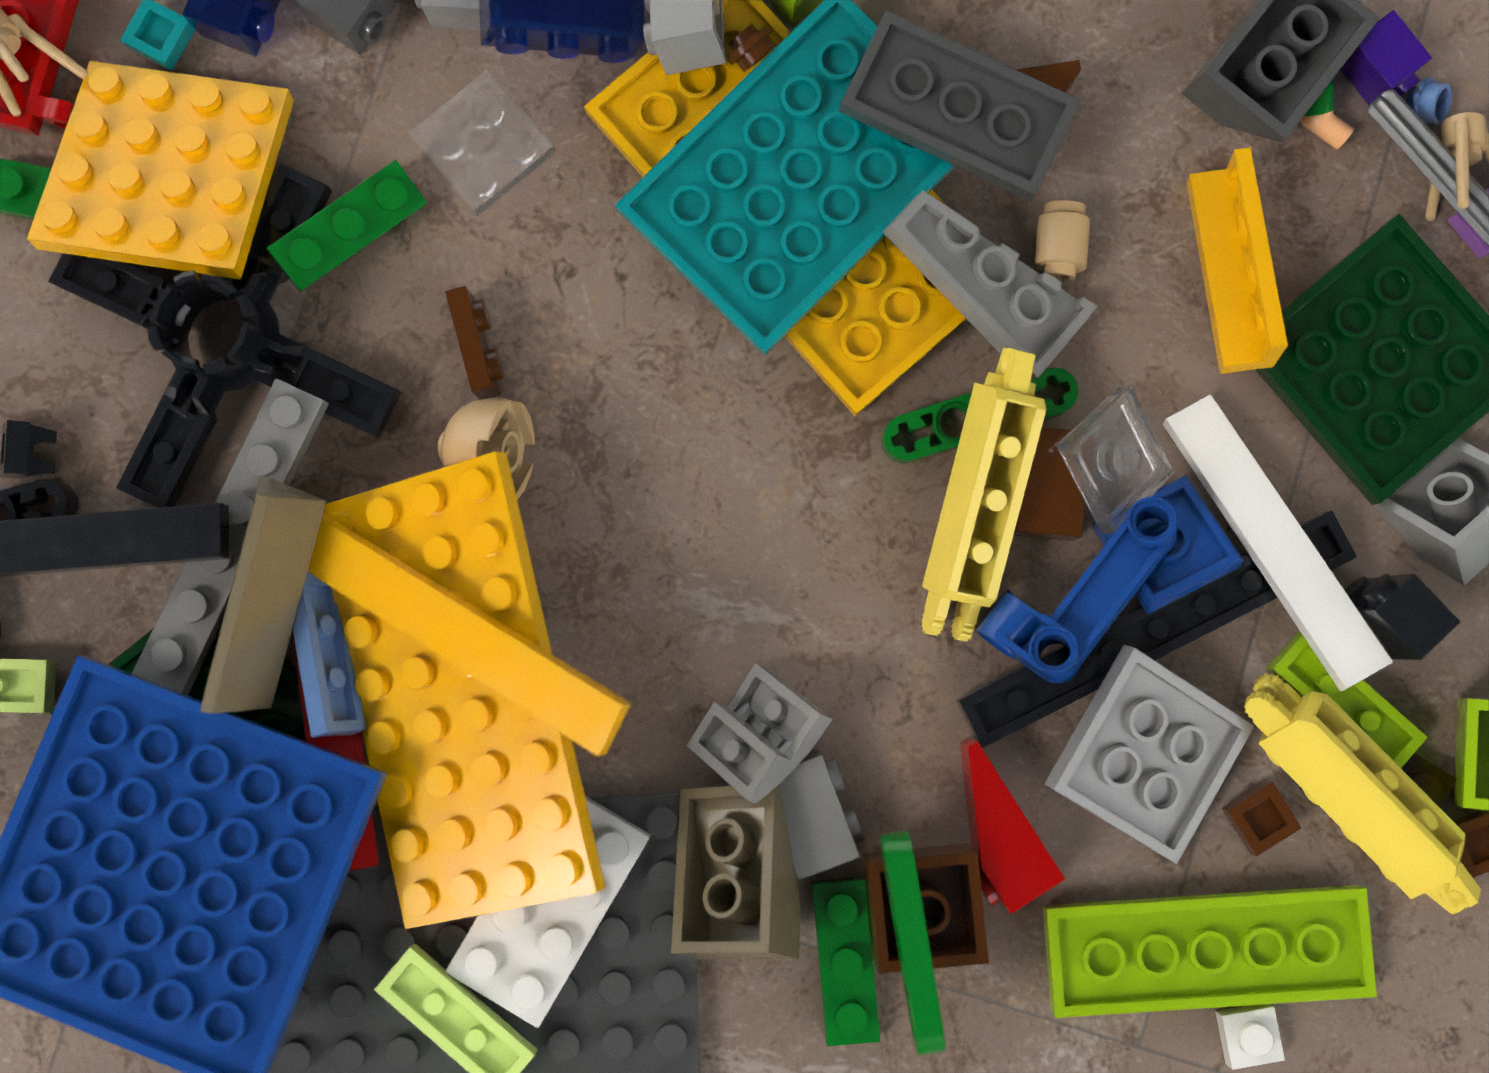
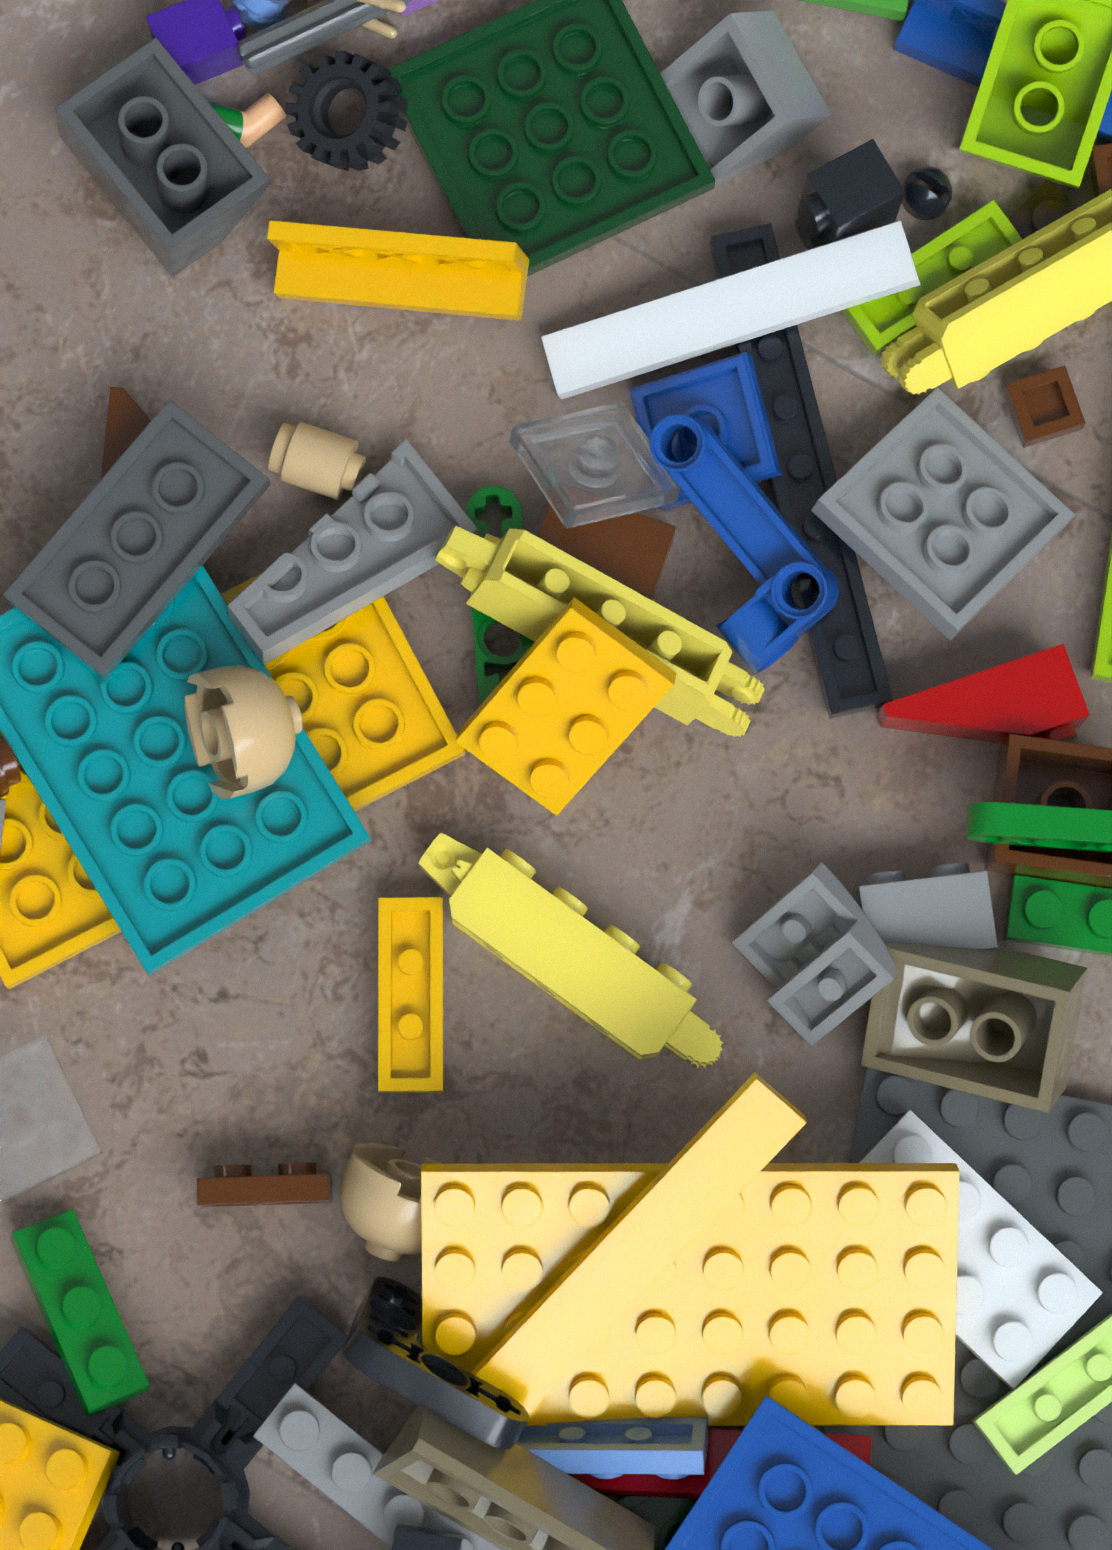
camera: 80 degrees left, 5 degrees down
(338, 471) = (385, 1349): none -> black beam
(652, 419) = (410, 995): none -> yellow plate
(712, 533) = (568, 955): none -> light yellow hinge
(825, 225) = (241, 728): none -> tan cylinder
(910, 483) = (565, 706): none -> yellow plate
(1362, 166) = (315, 99): none -> black tyre
(1408, 677) = (921, 201): none -> black hinge

